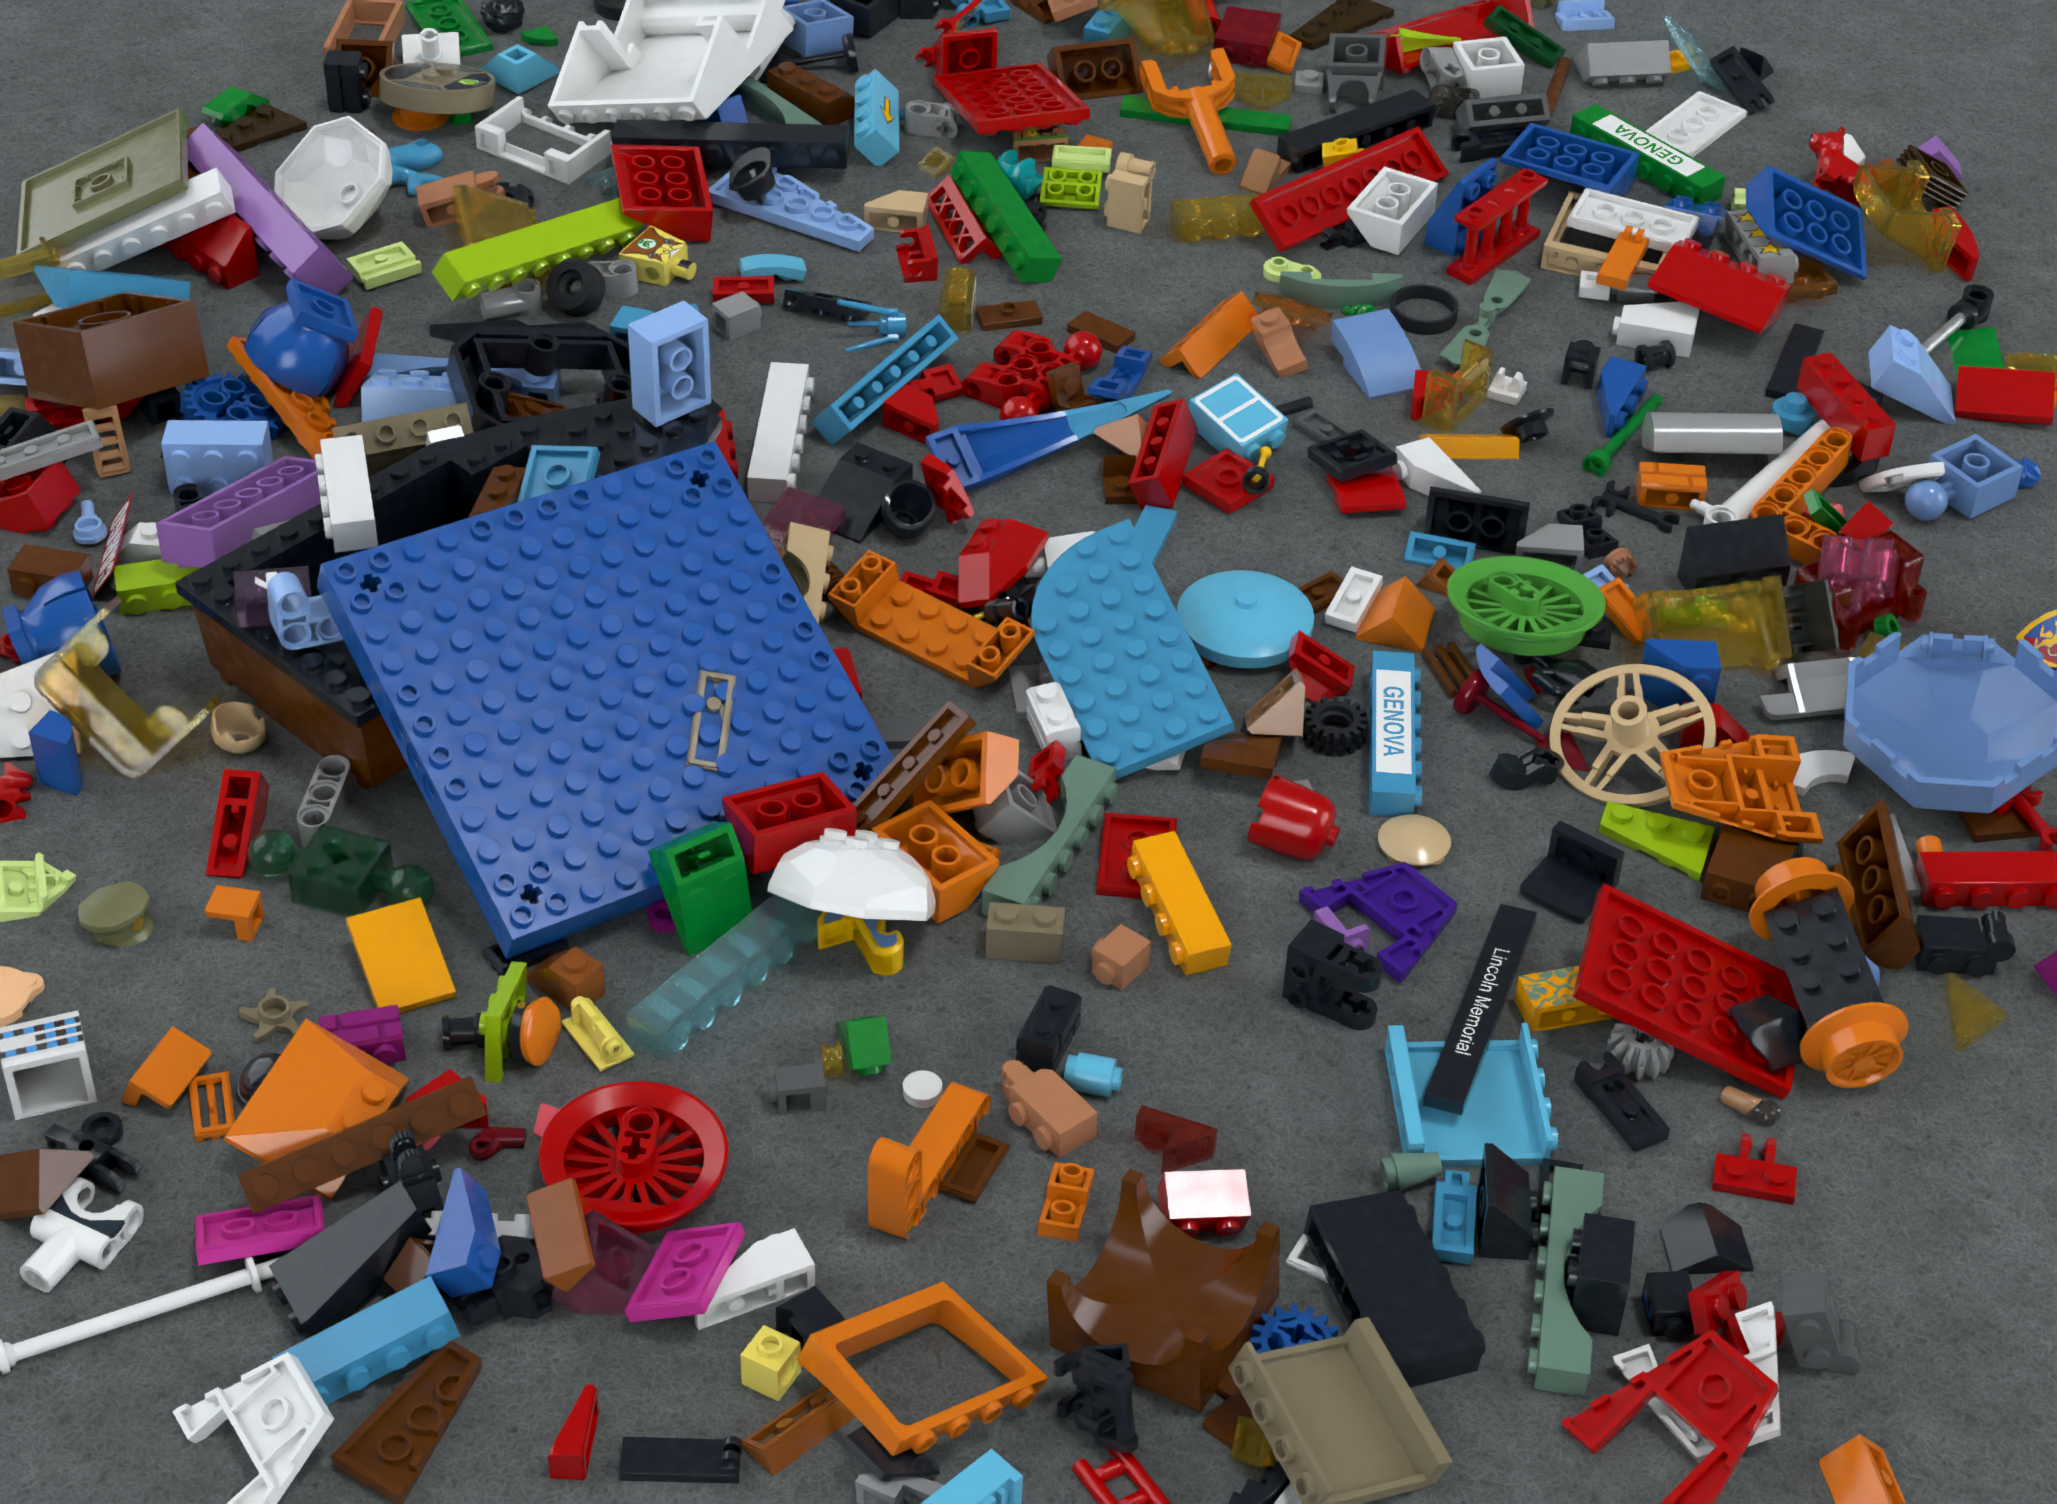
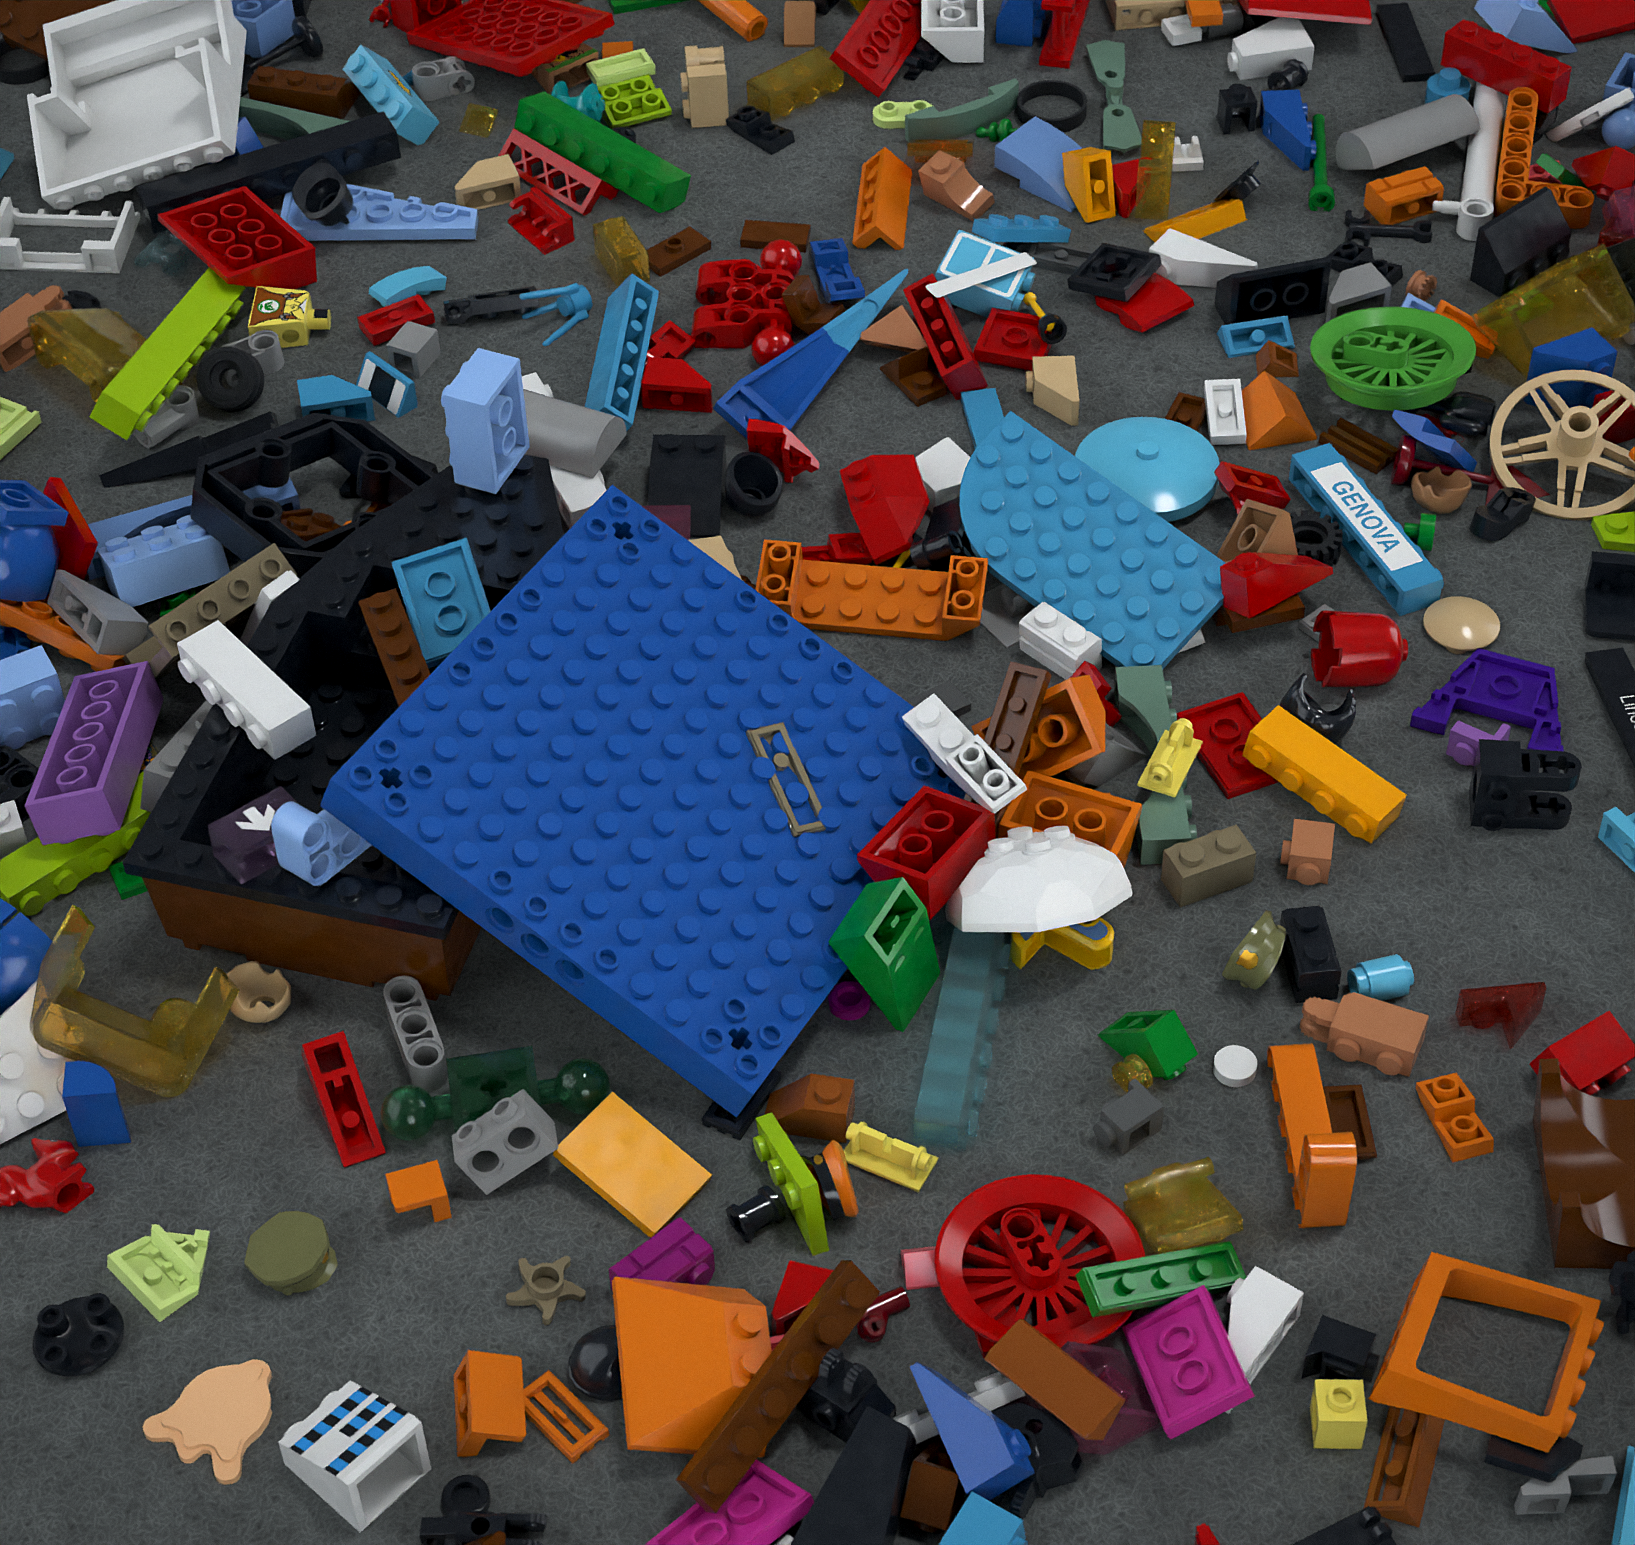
camera: 25 degrees left, 5 degrees up
(315, 897) = (497, 1149): none -> light grey brick
(333, 410) = (96, 616): none -> light grey slope
(710, 1202) = (1159, 1278): none -> green tile
(771, 404) = (571, 434): none -> light grey brick
(778, 1167) = (1180, 1207): none -> clear yellow plate
(864, 756) = (963, 755): none -> white slope
(1001, 1006) = (1257, 953): none -> olive hat
(1054, 838) = (1171, 759): none -> light yellow hinge
(1159, 245) = (758, 129): none -> black slope
(1211, 855) = (1330, 724): none -> black piece
(1226, 415) = (980, 274): none -> white sticker
(1228, 527) = (1055, 386): none -> tan slope
(1246, 731) = (1264, 579): none -> red slope
(1301, 394) = (1021, 229): none -> dark azure plate
(1394, 379) = (1090, 182): none -> light orange slope
(1443, 755) = (1423, 531): none -> green tile
(1485, 729) = (1440, 492): none -> medium nougat hair

